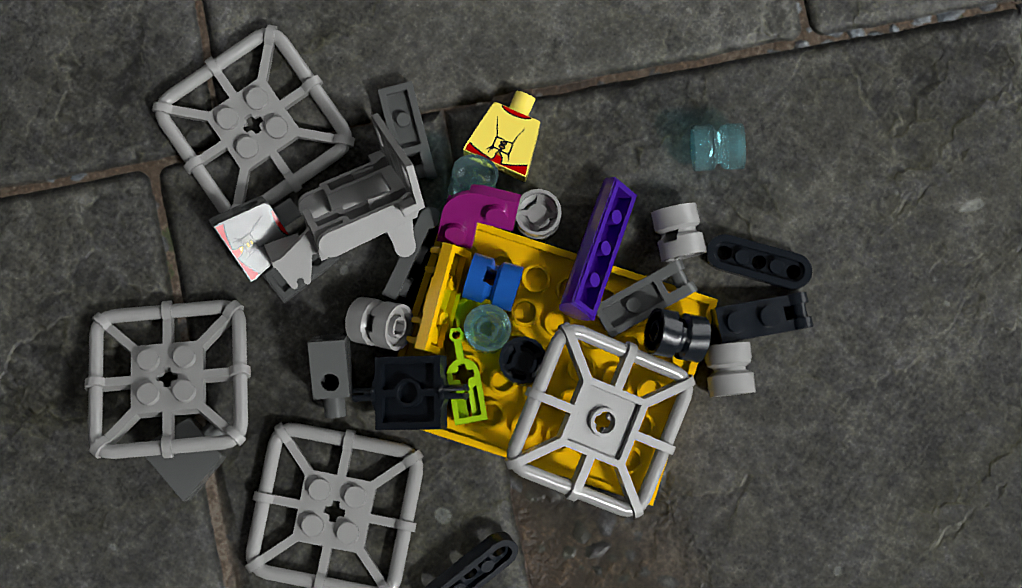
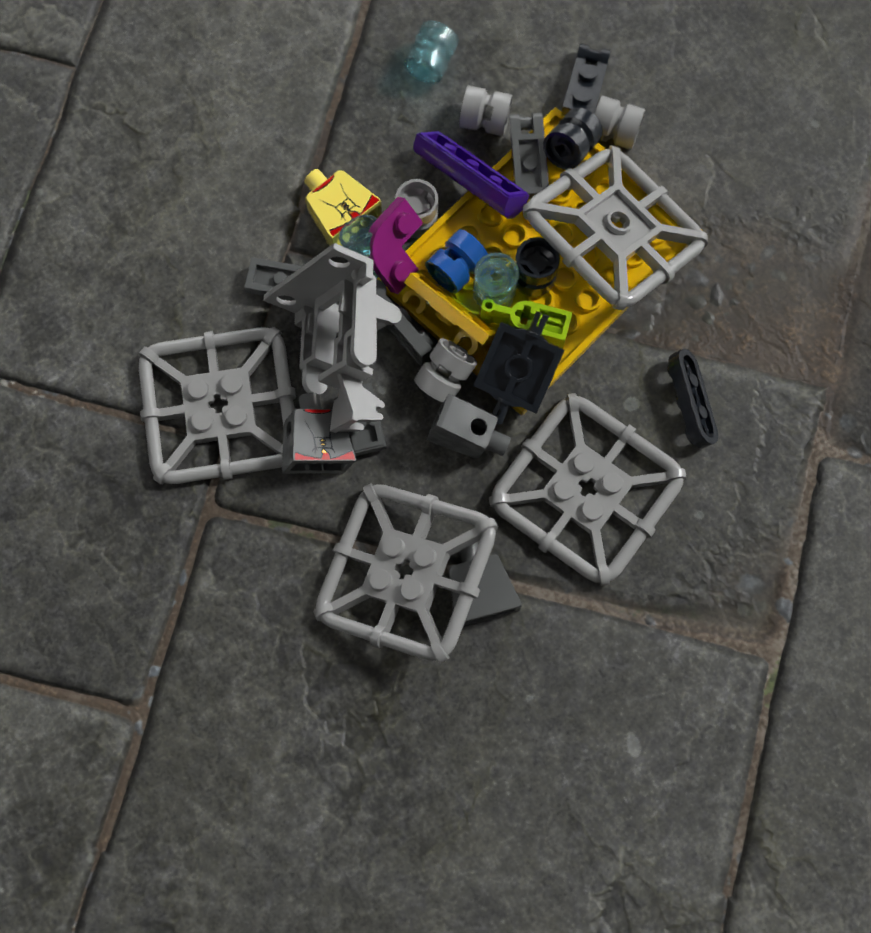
camera: 65 degrees left, 10 degrees down
(775, 262) = (543, 57): black plate -> none

